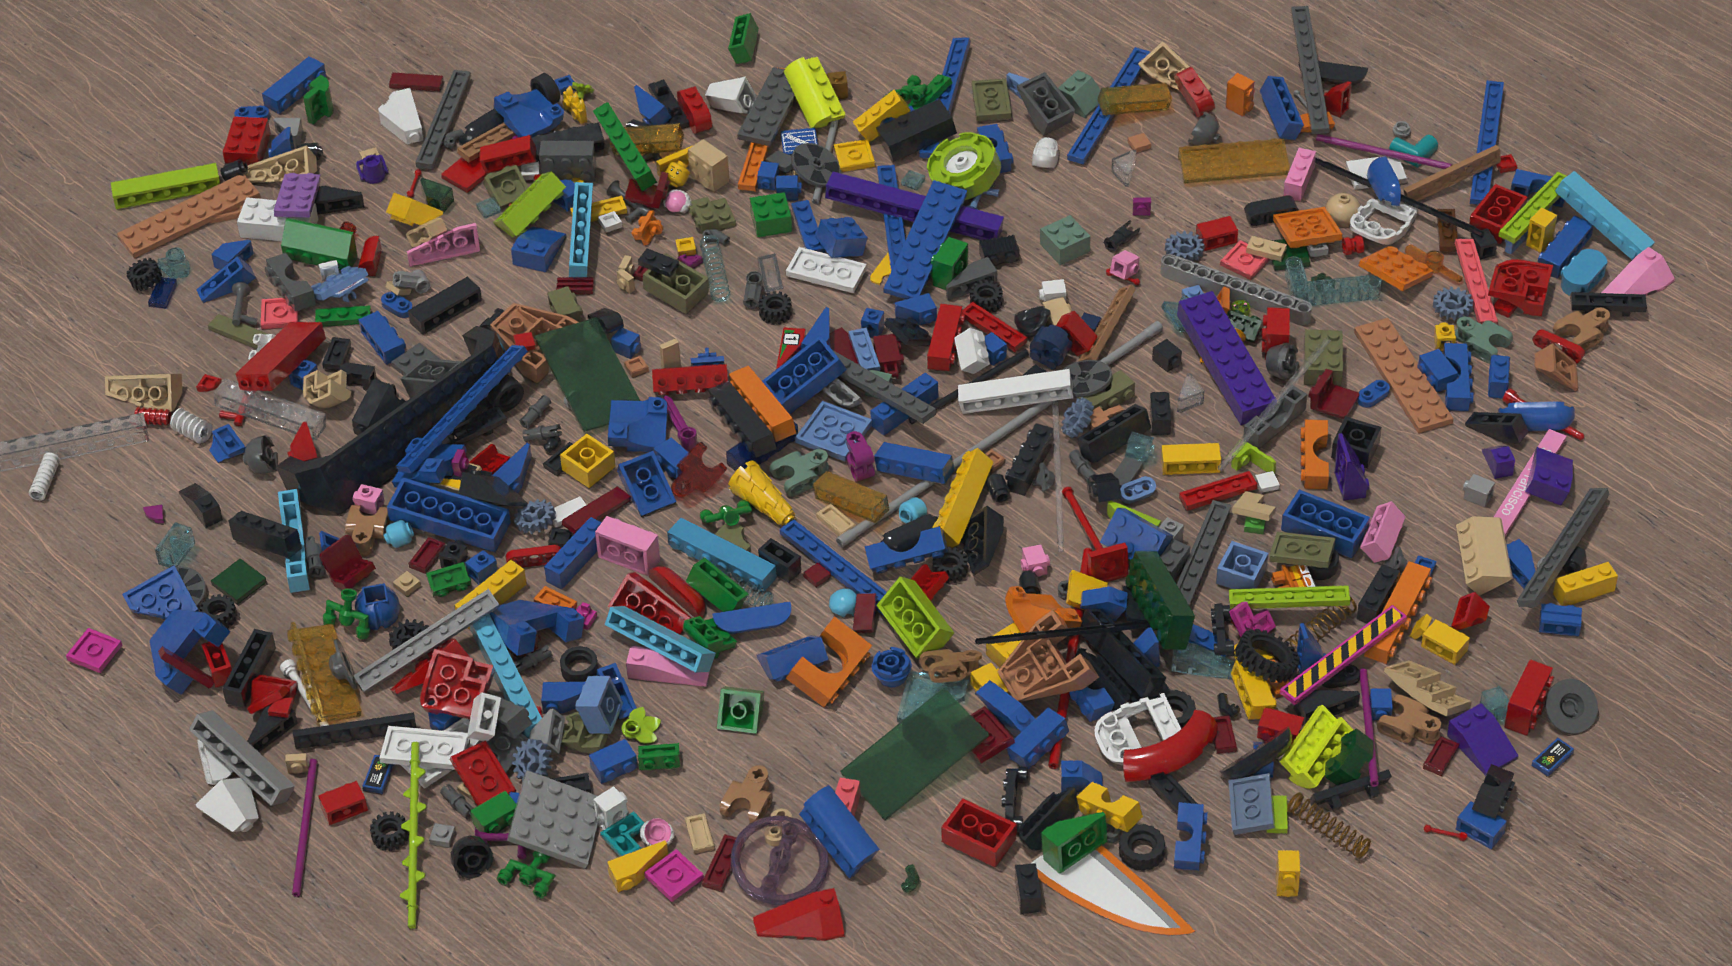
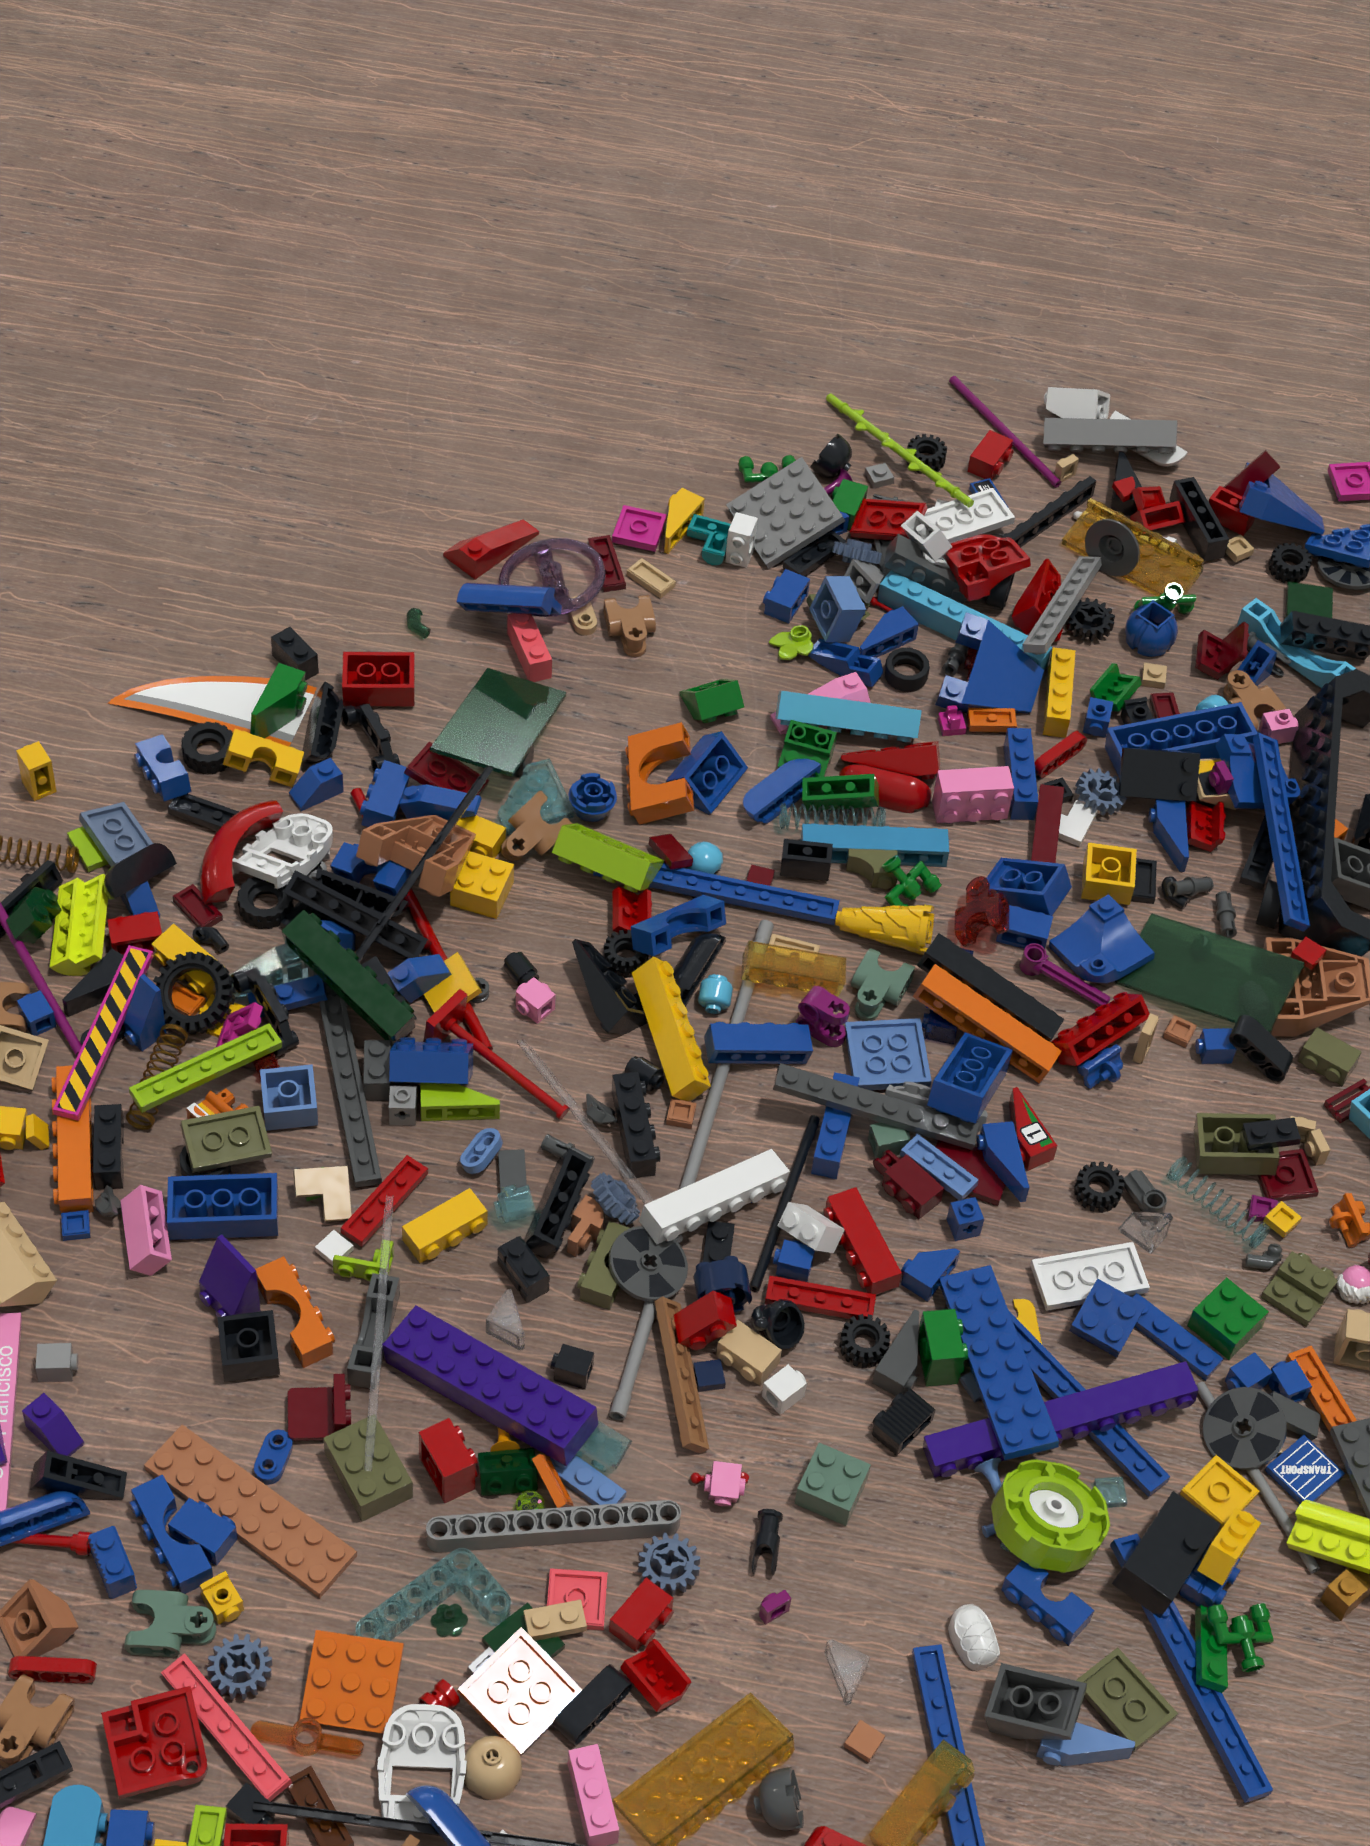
camera: 140 degrees right, 5 degrees up
(239, 640) = (1239, 548): none -> tan plate
(656, 831) = (685, 551): bright pink hair -> none
(659, 756) = (747, 618): green bracket -> none
(908, 331) = (911, 1225): black plate -> none
(1029, 608) = (478, 923): orange slope -> none
(1081, 93) = (1009, 1781): sand green slope -> none
(1104, 487) = (516, 1118): black brick -> none
(1229, 205) = (656, 1676): none -> red bracket
(1282, 361) = (413, 1416): flat silver cone -> none

